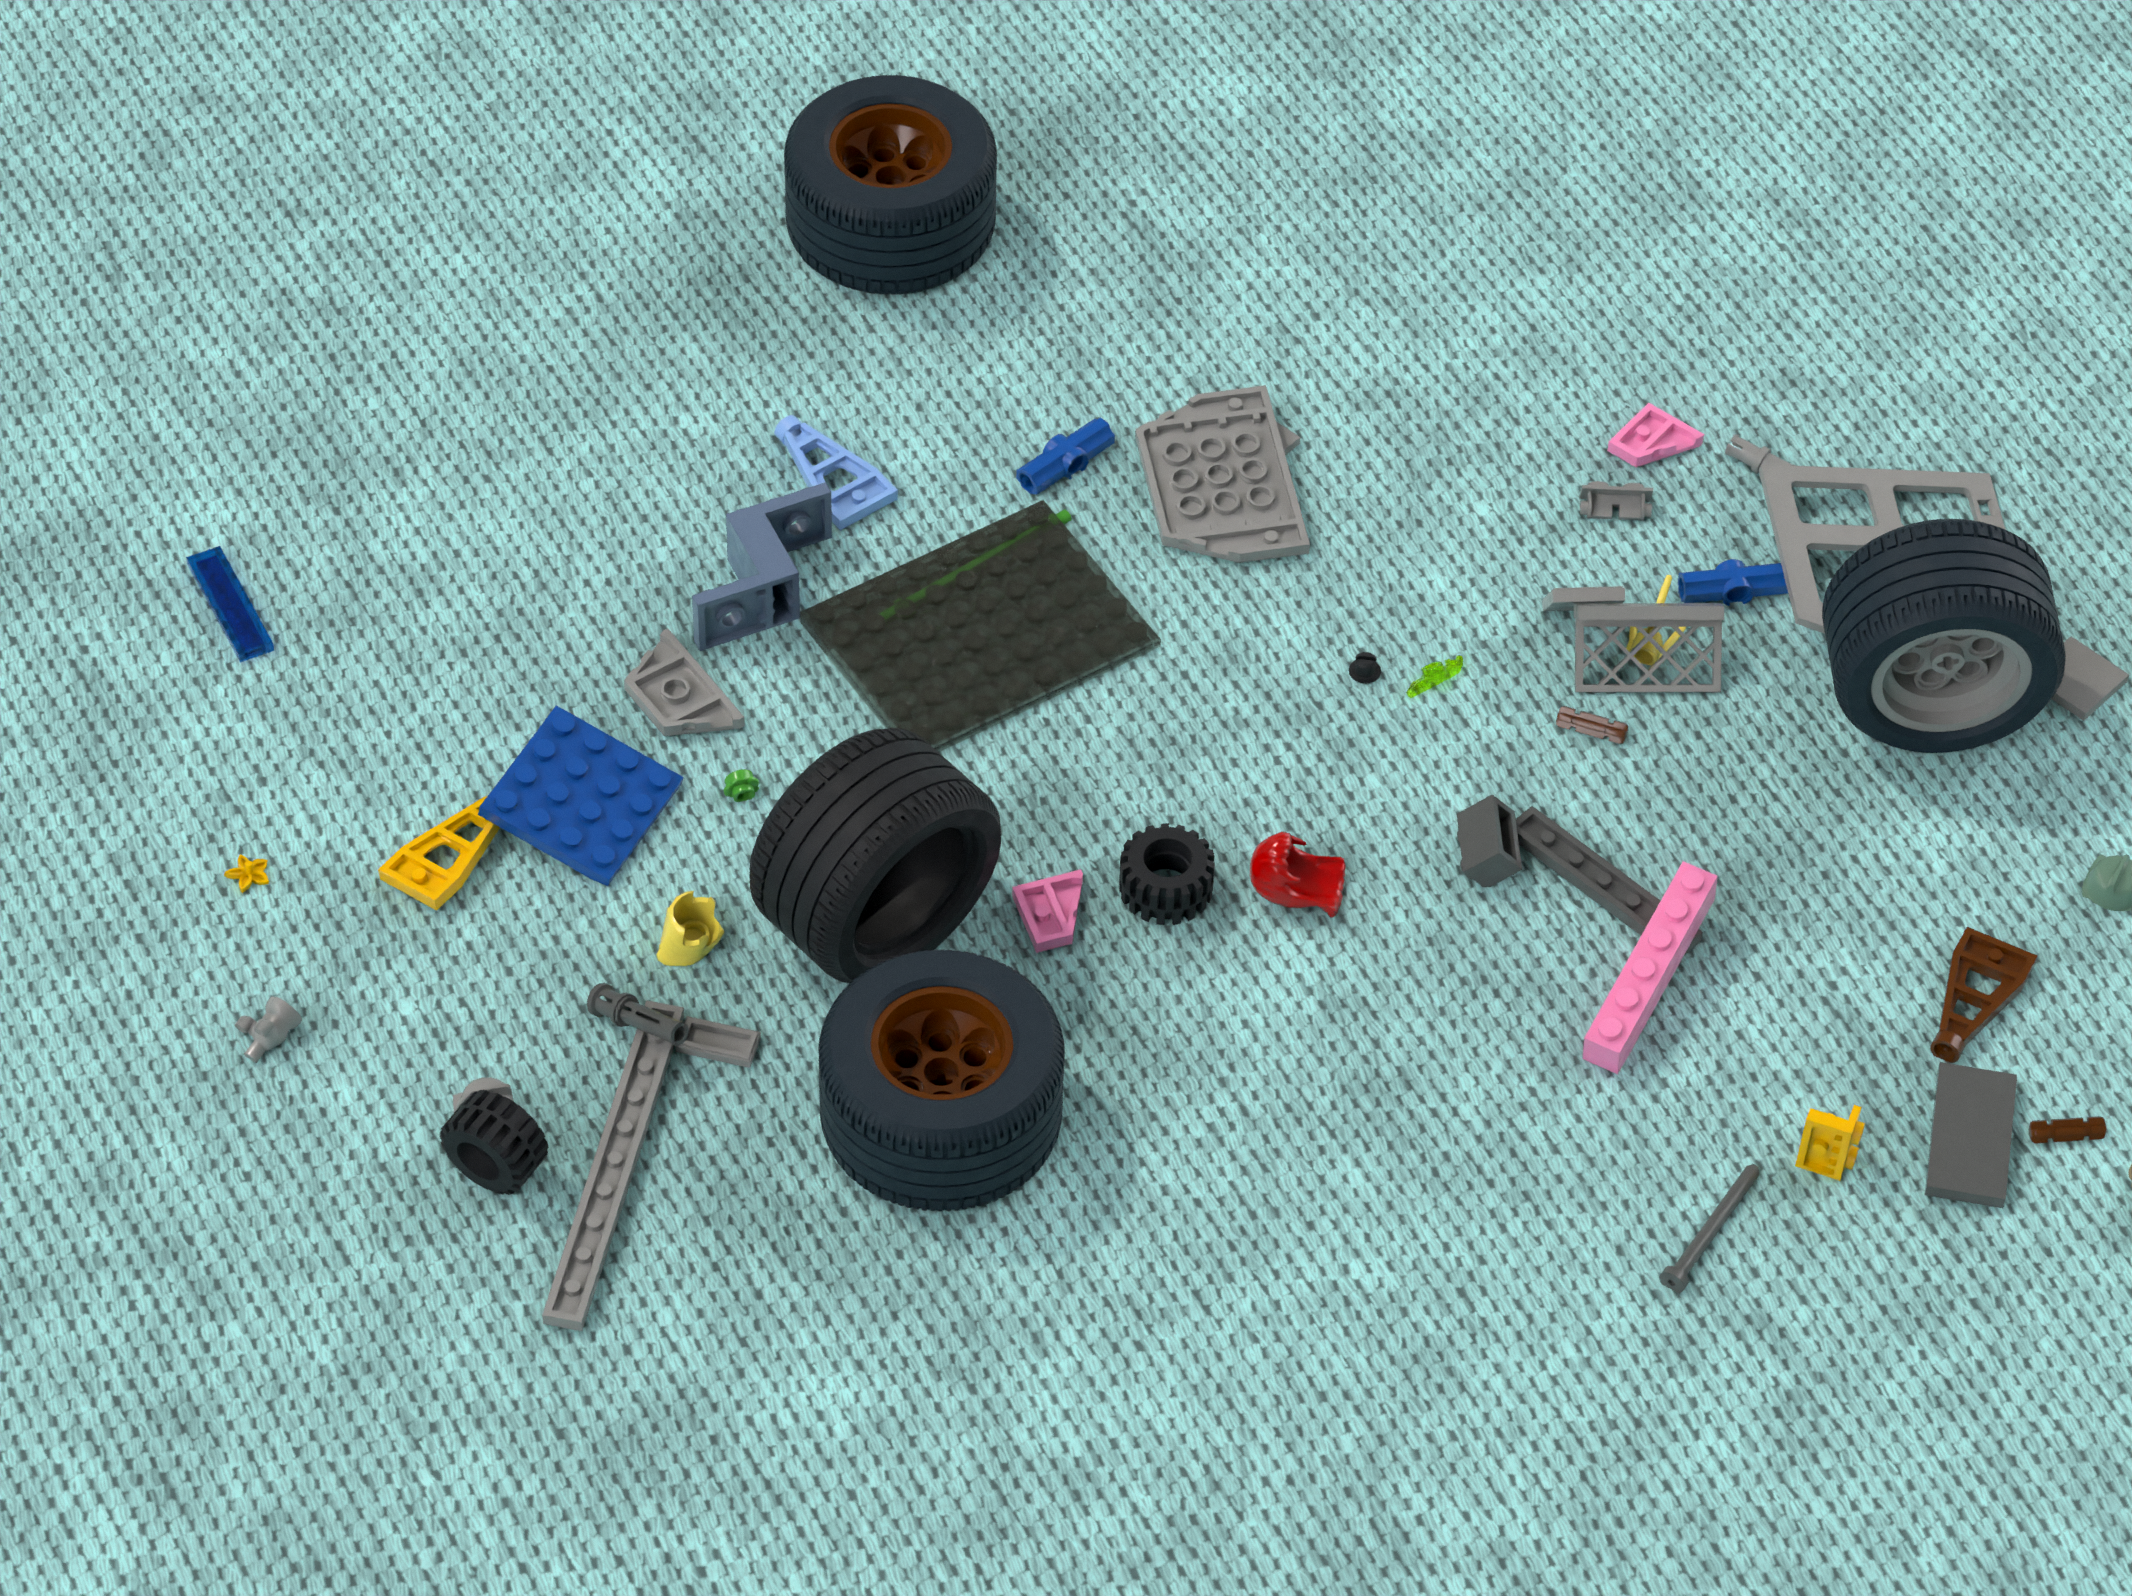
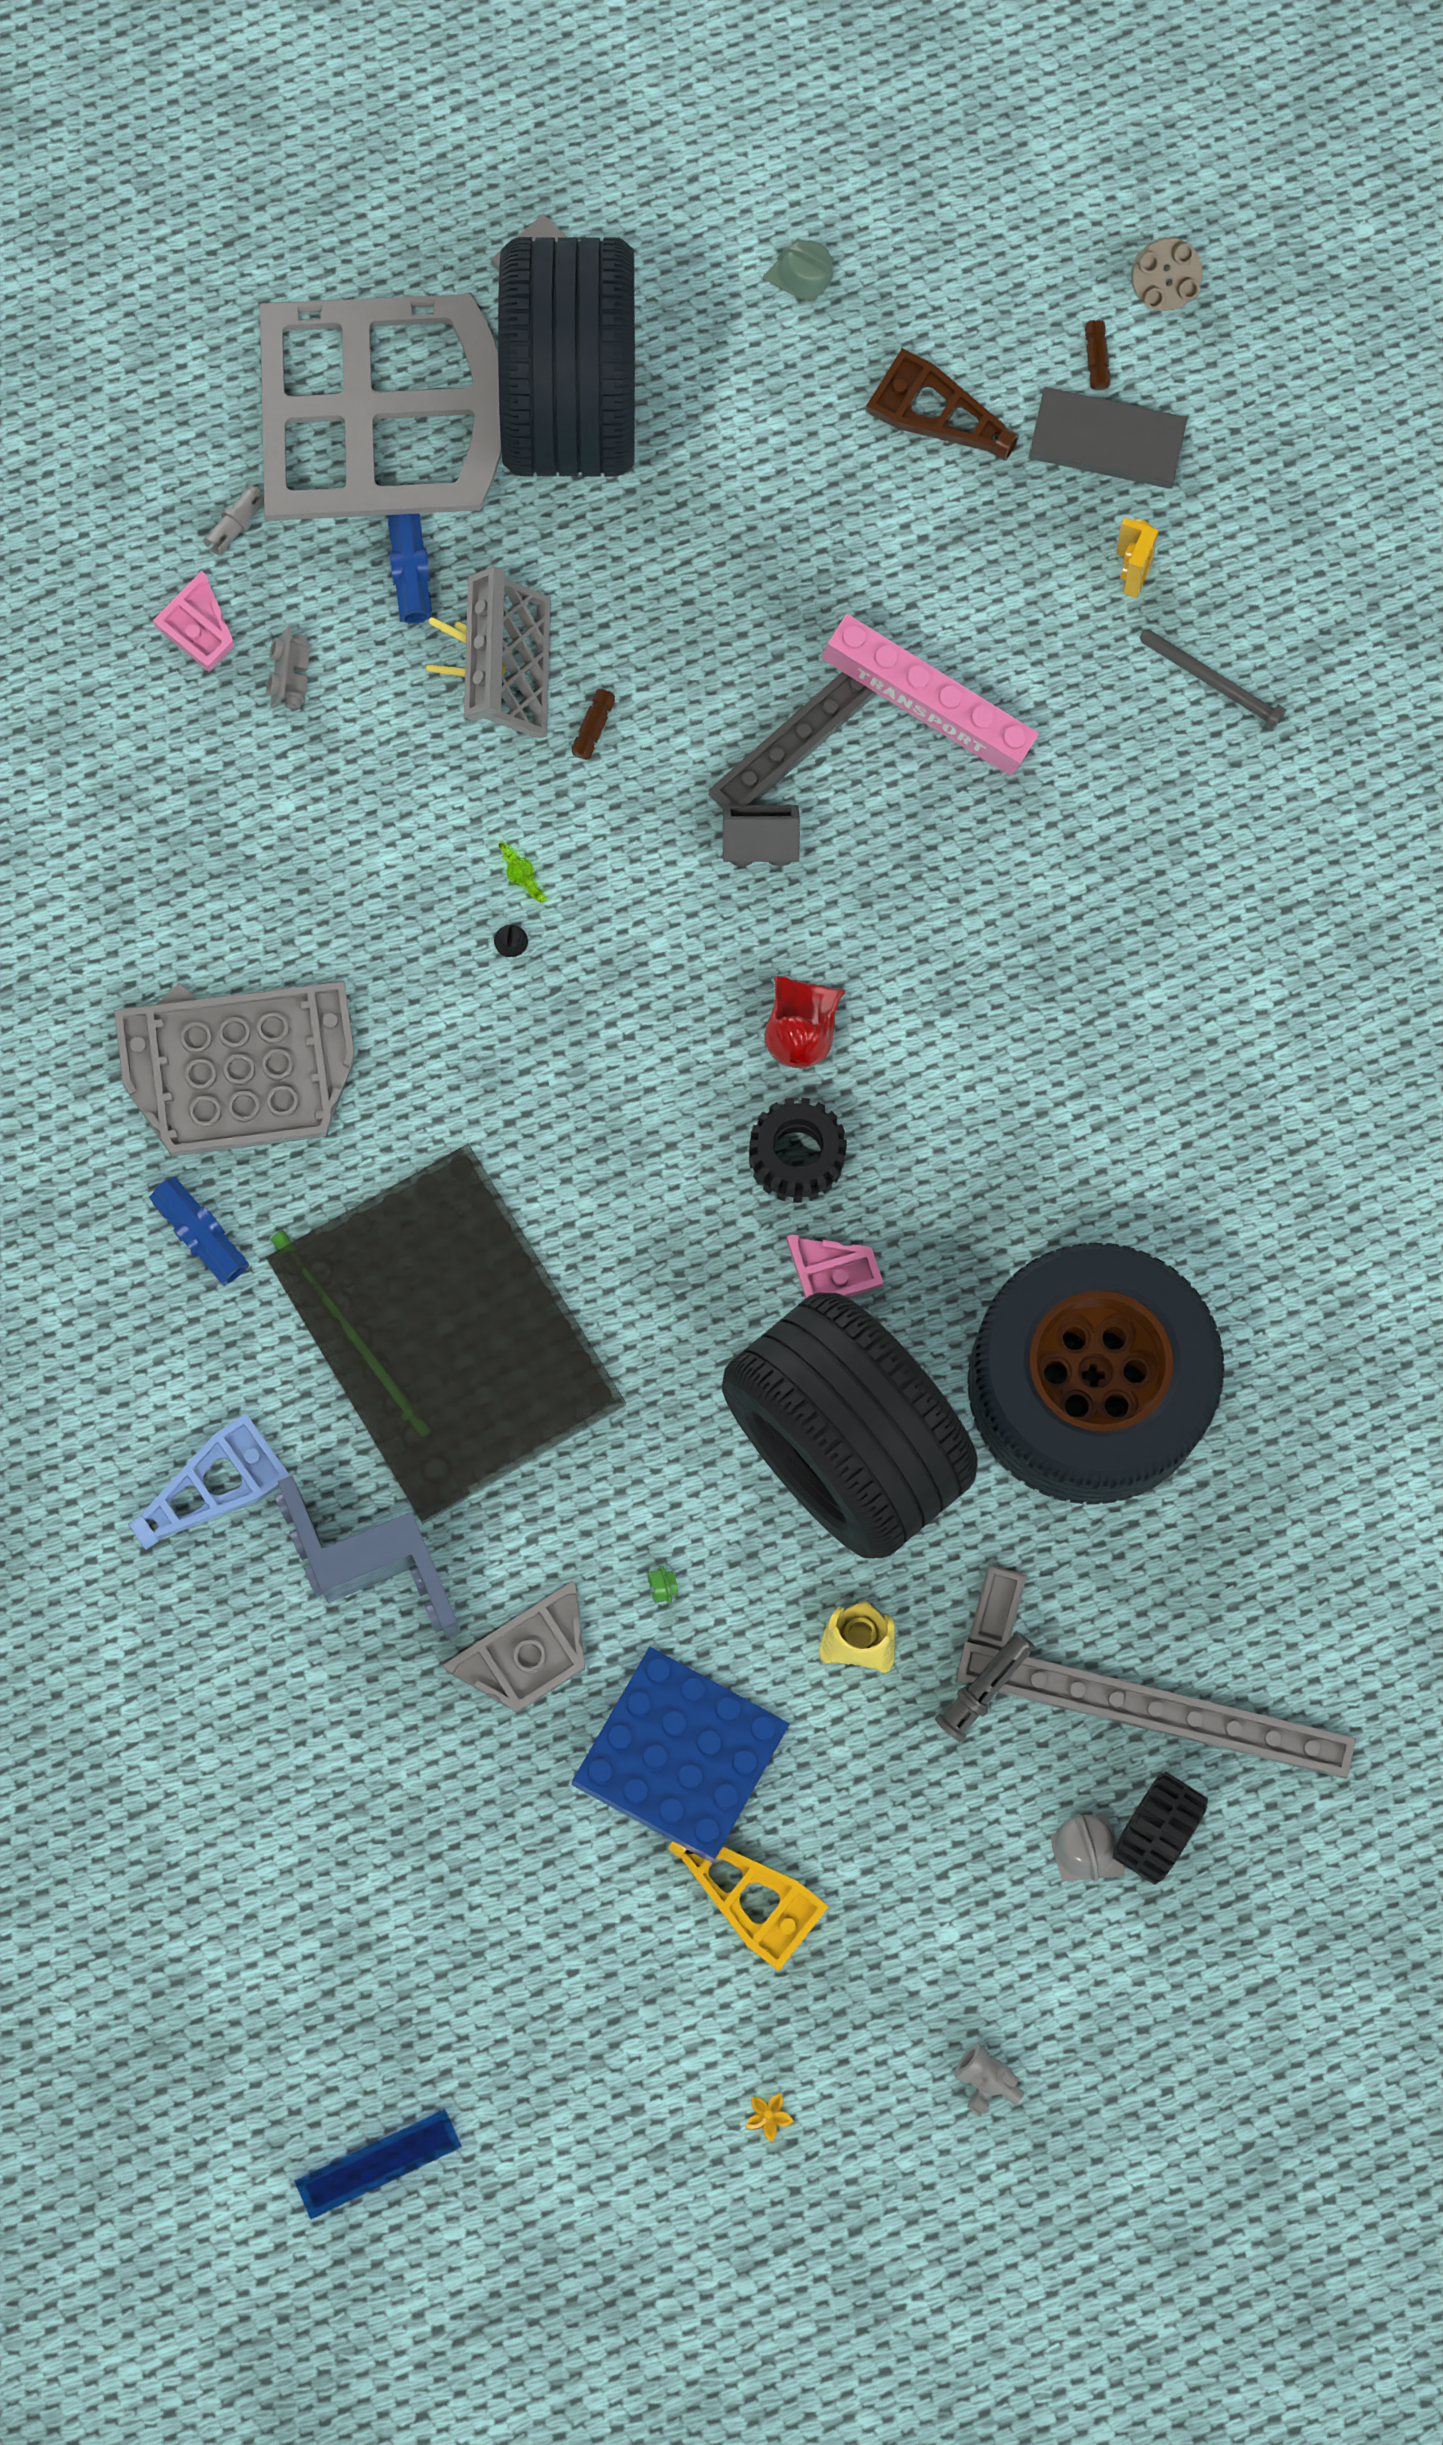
camera: 90 degrees left, 25 degrees up
(1564, 598) = (443, 711): light grey tile -> none

